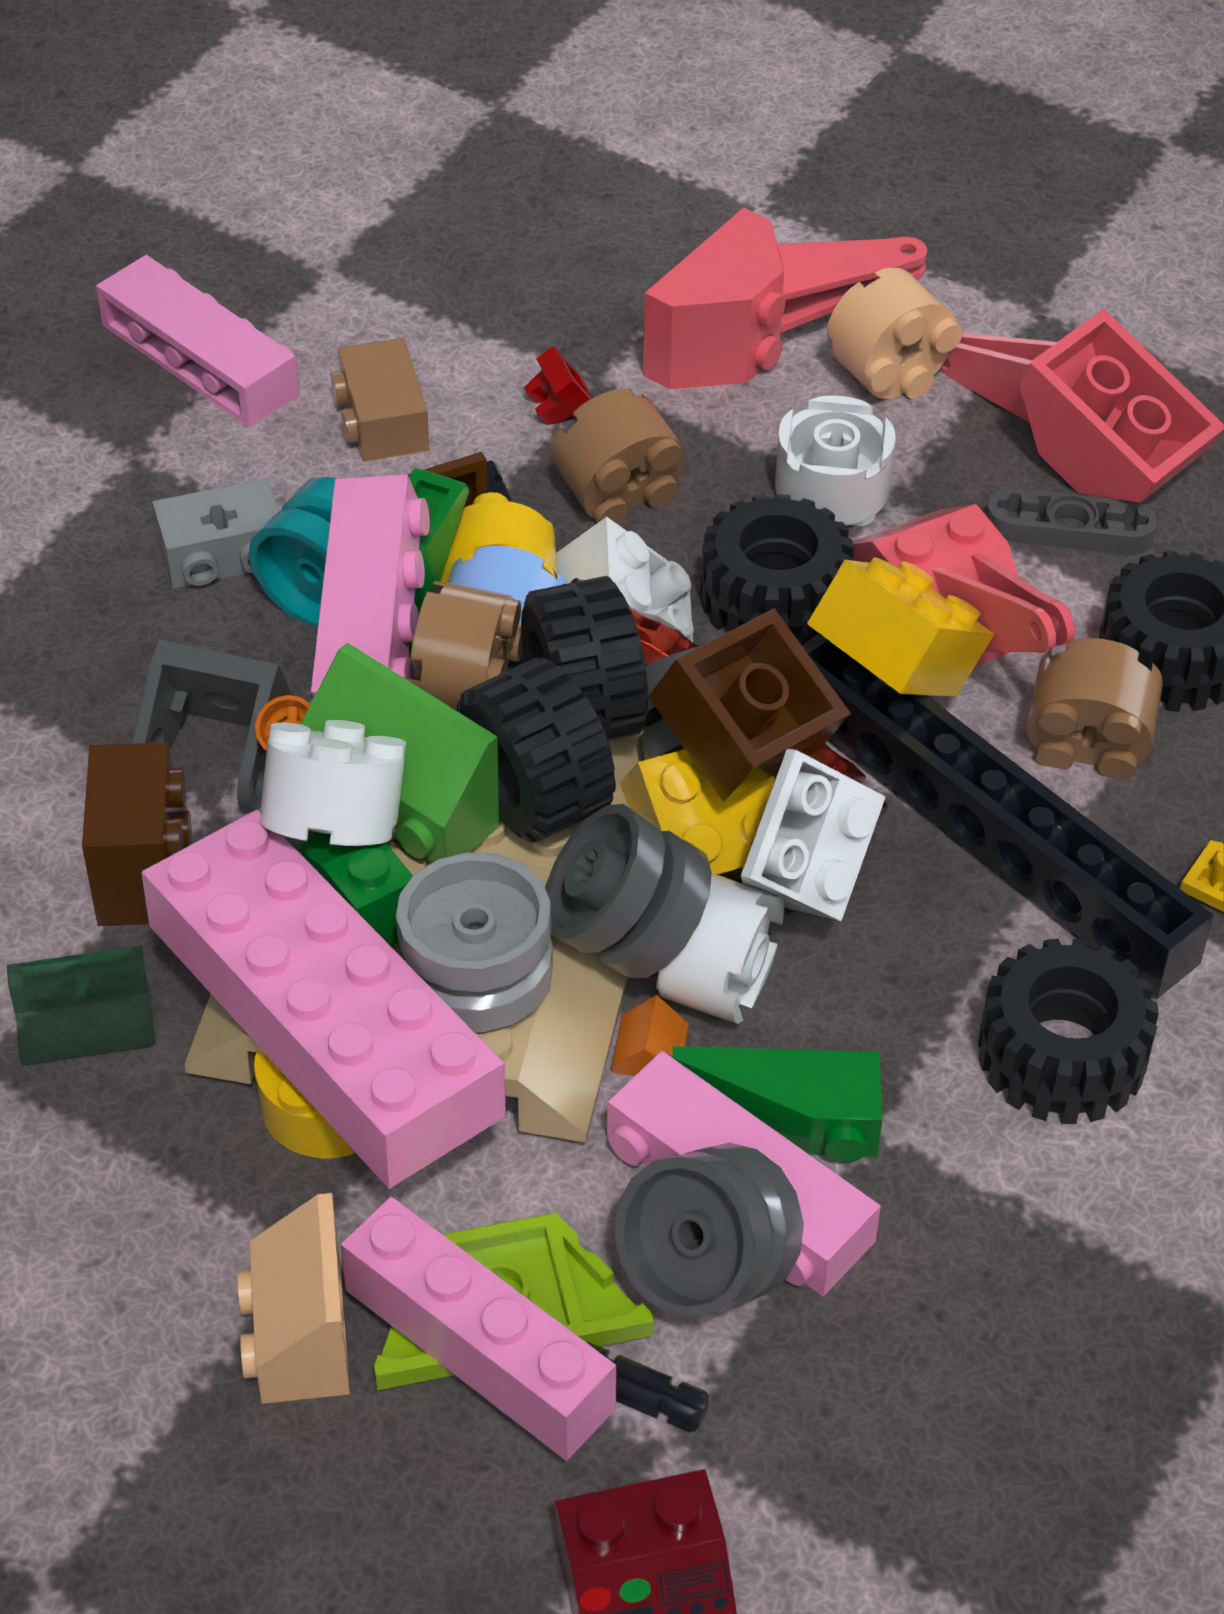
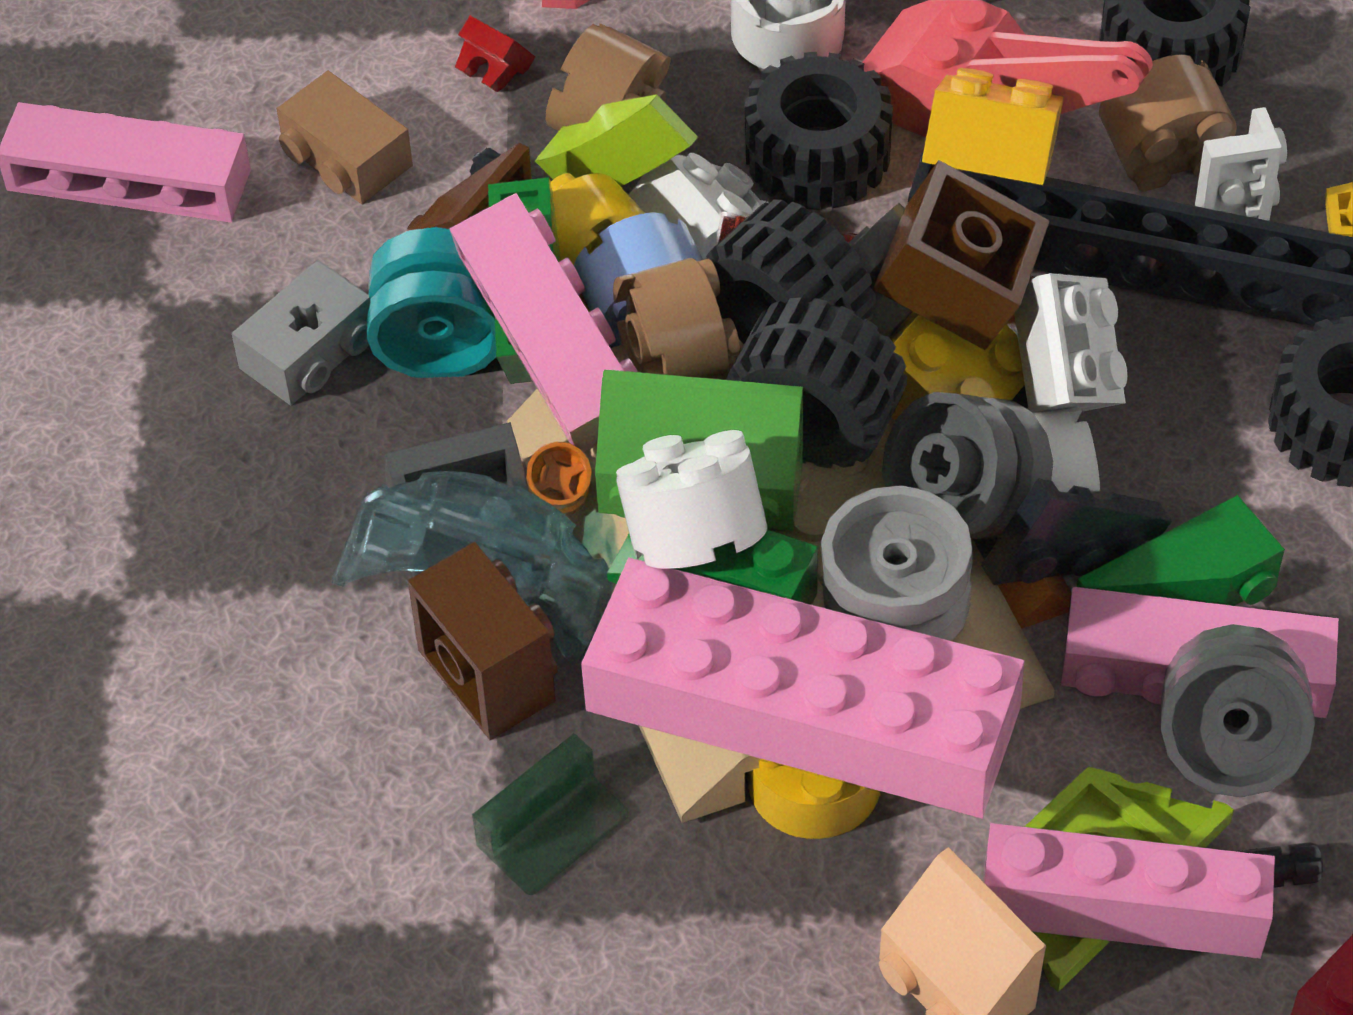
camera: 30 degrees left, 5 degrees up
(154, 705) = (447, 510): none -> clear light blue windscreen
(573, 495) = (618, 141): none -> lime slope
(684, 1002) = (1070, 533): none -> black wing
(1116, 781) = (1242, 170): none -> white bracket

